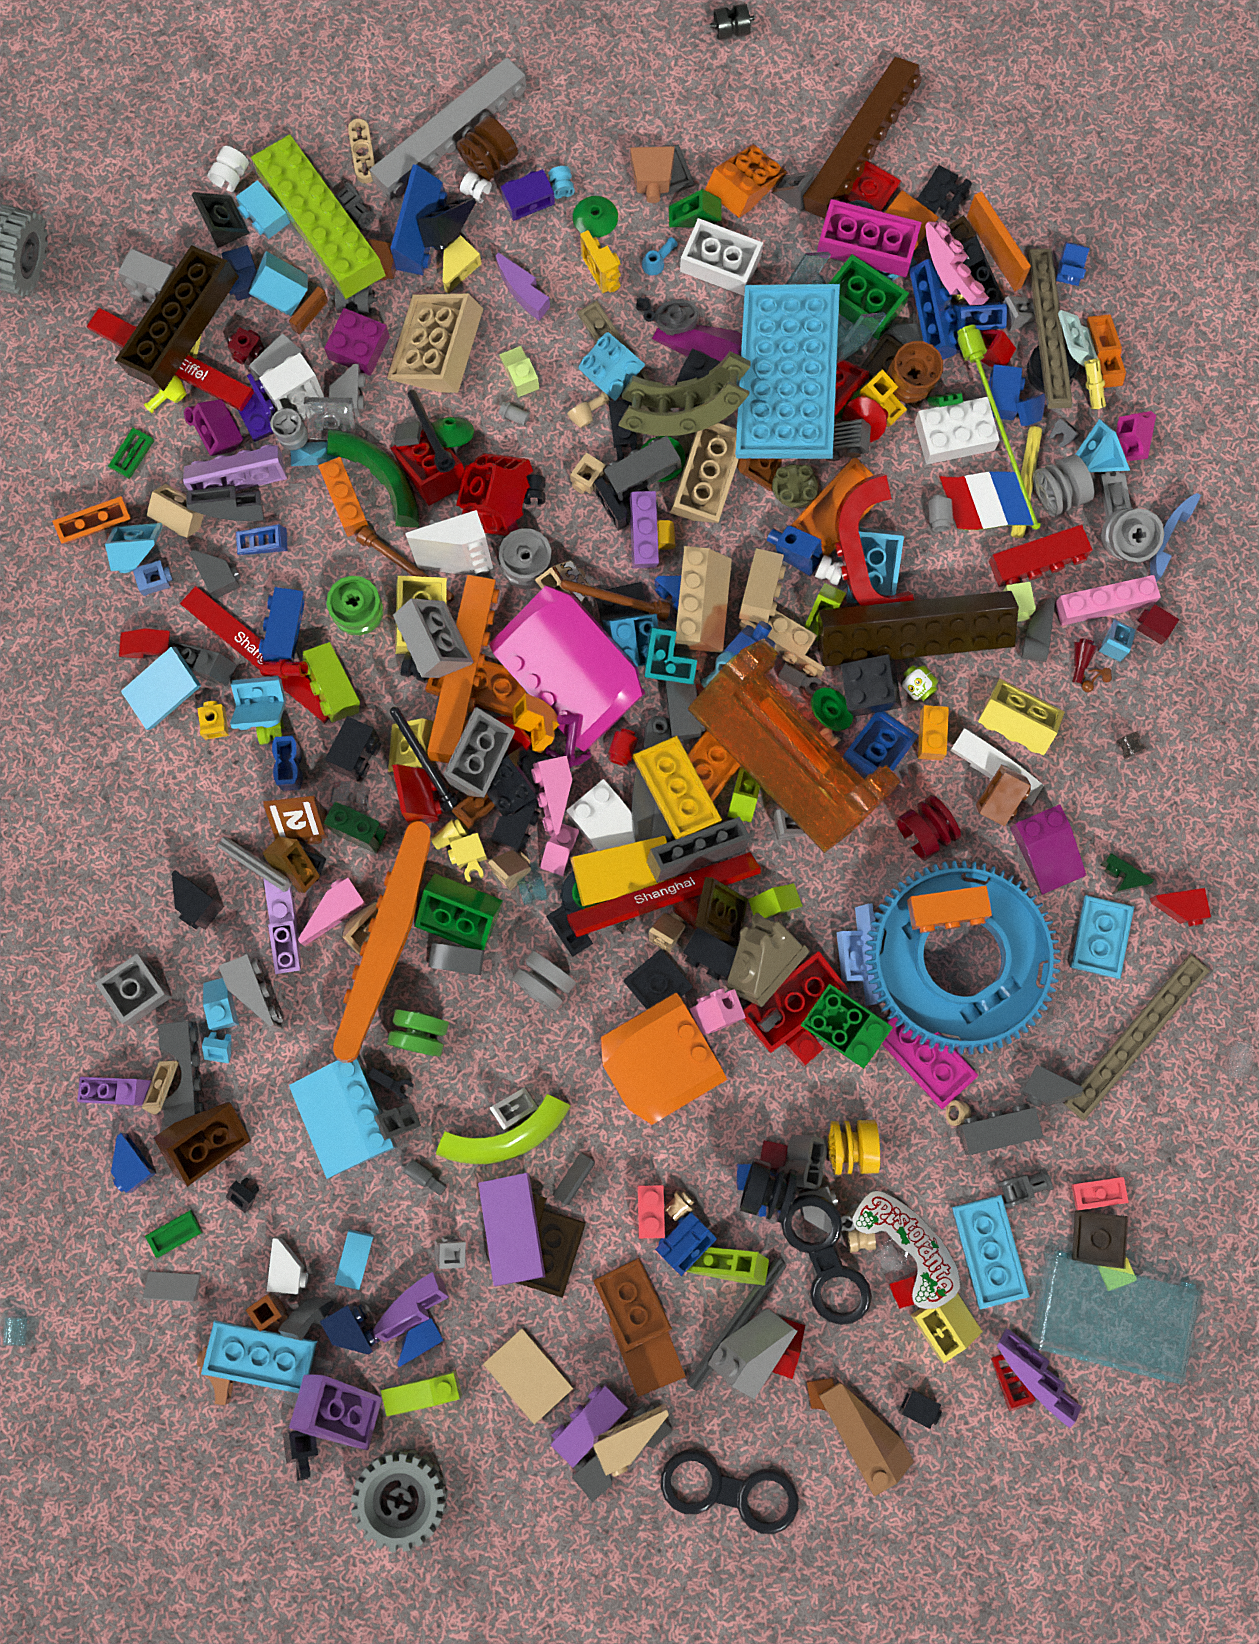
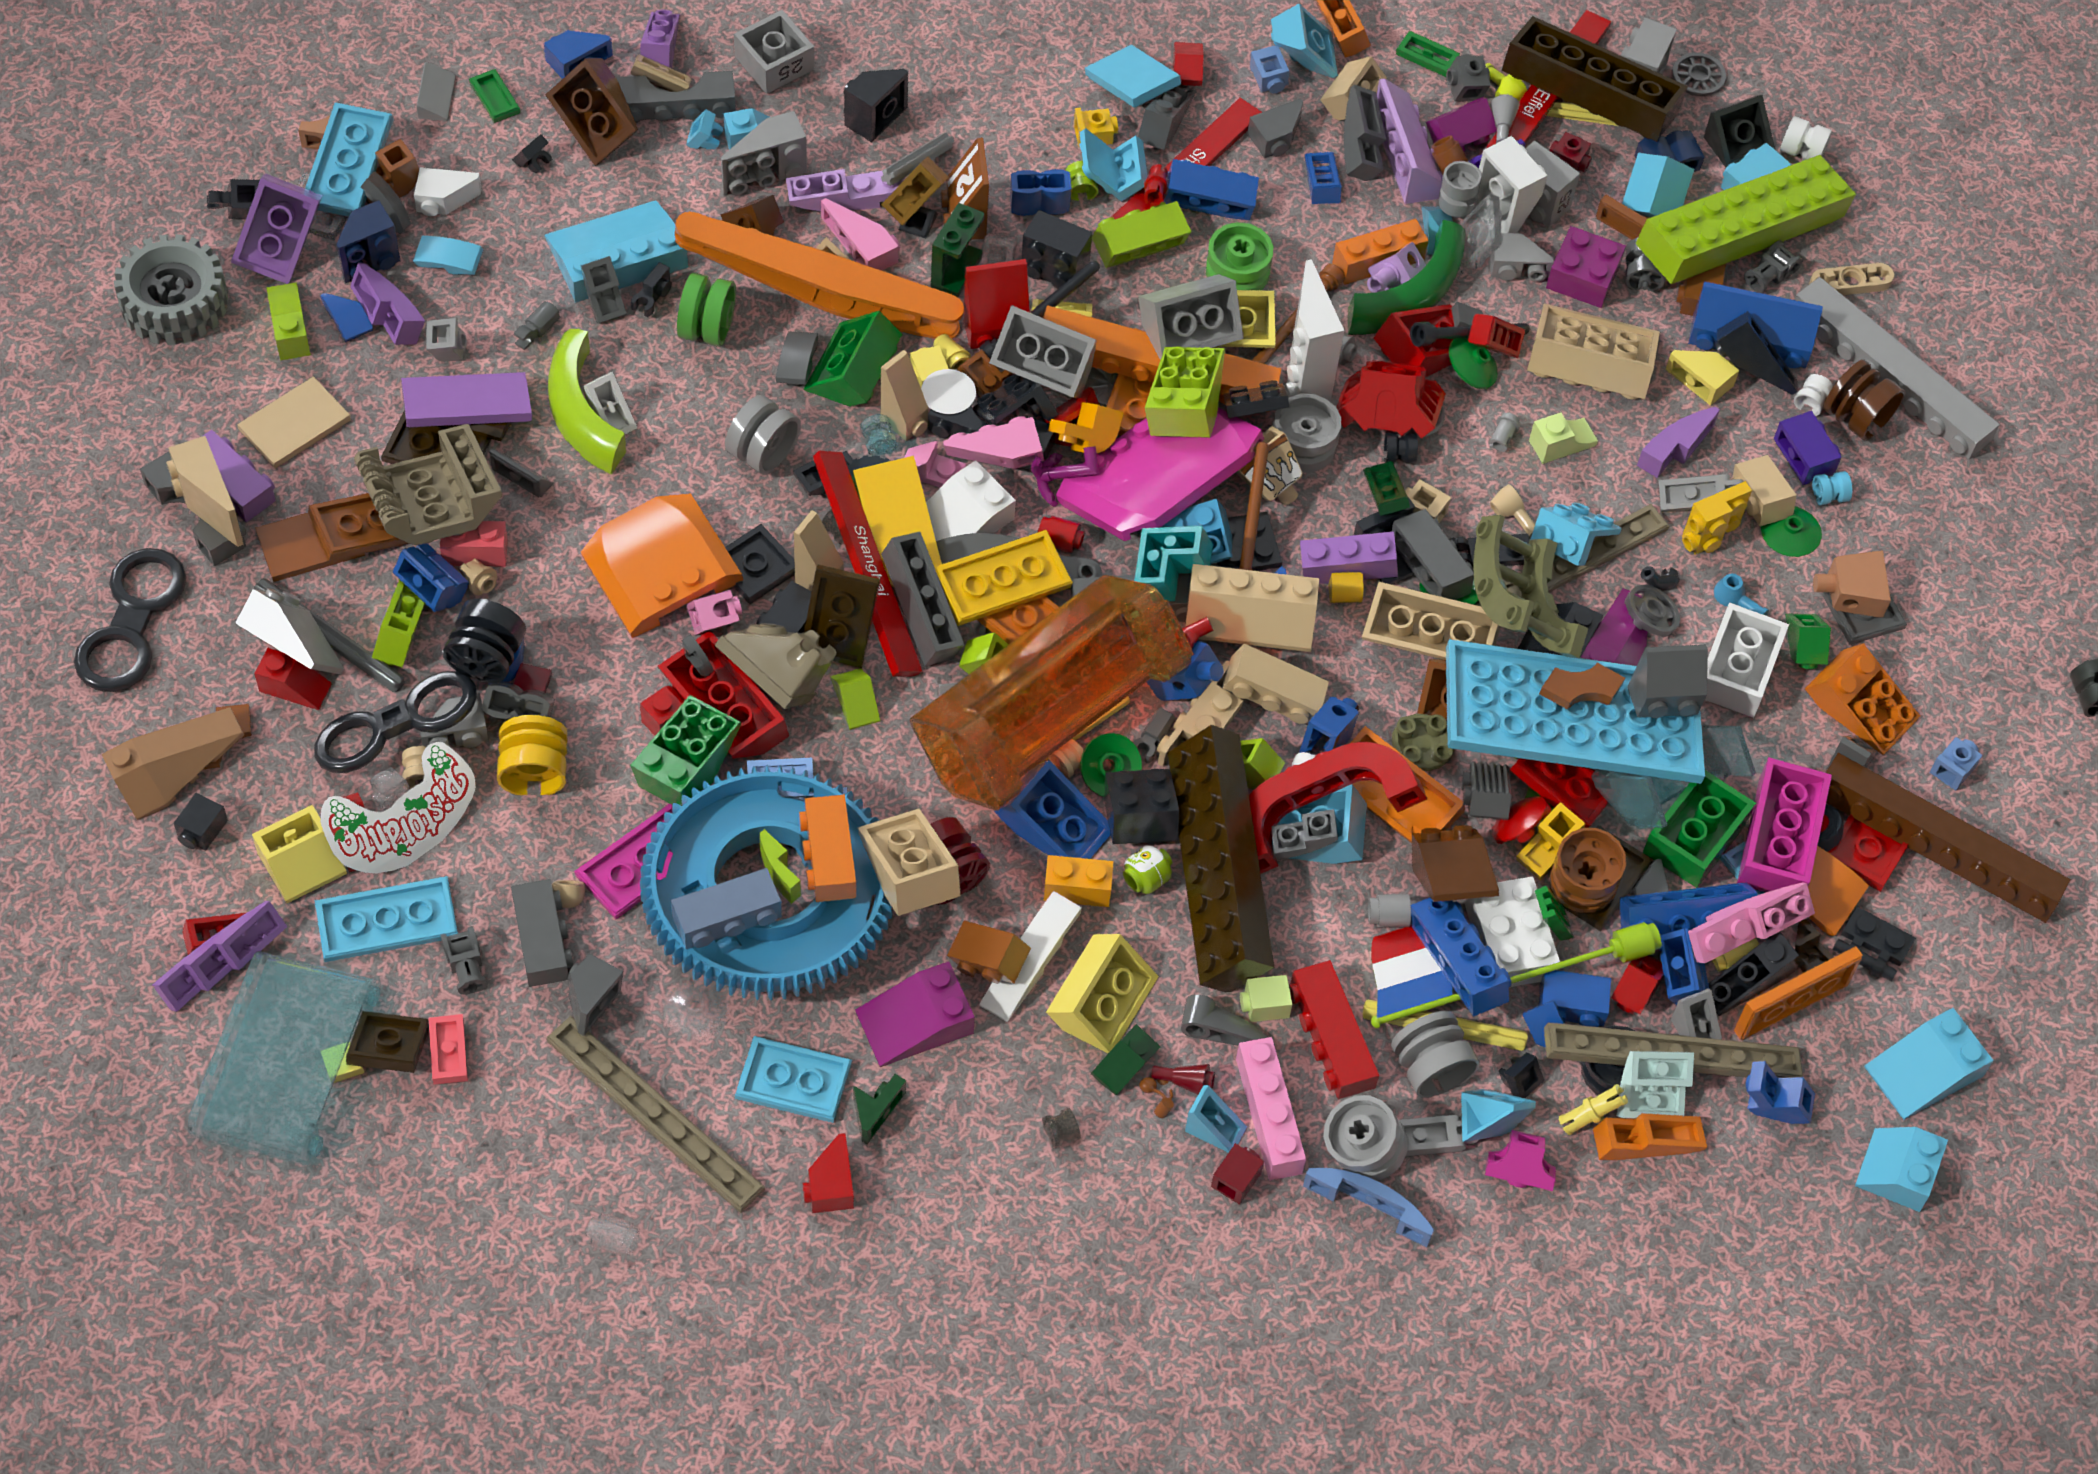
camera: 85 degrees right, 20 degrees down
(153, 244) = (1699, 73): none -> flat silver wheel
(163, 420) = (1468, 78): none -> dark grey brick
(210, 391) = (1504, 112): none -> light grey cone
(255, 436) = (1447, 151): none -> dark orange brick
(320, 999) = (758, 214): none -> reddish brown brick
(369, 484) = (1395, 269): none -> lavender bracket
(431, 412) = (1494, 335): none -> red slope
(496, 833) = (948, 391): none -> white sticker
(509, 641) = (1185, 392): none -> lime slope
(510, 590) = (1247, 401): none -> black plate
(564, 229) = (1771, 494): none -> tan brick
(571, 275) = (1683, 492): none -> light grey hinge
(580, 499) = (1386, 488): none -> dark green tile
(616, 1249) = (432, 493): none -> dark tan slope
(728, 645) = (1197, 630): none -> red arm
(768, 352) = (1594, 684): none -> dark orange tile
(772, 299) = (1670, 681): none -> dark grey slope
(798, 127) = (1956, 762): none -> medium blue brick
(893, 567) = (1303, 837): none -> dark grey slope
(917, 463) = (1453, 864): none -> reddish brown slope
(954, 848) = (910, 862): none -> tan slope
(962, 948) = (776, 861): none -> lime slope
(986, 463) = (1461, 954): none -> blue brick
(1007, 983) = (726, 909): none -> sand blue brick
(1038, 165) = (1930, 1064): none -> medium azure slope
(1074, 703) = (1125, 1060): none -> dark green slope
(1116, 190) = (1902, 1165): none -> medium azure slope

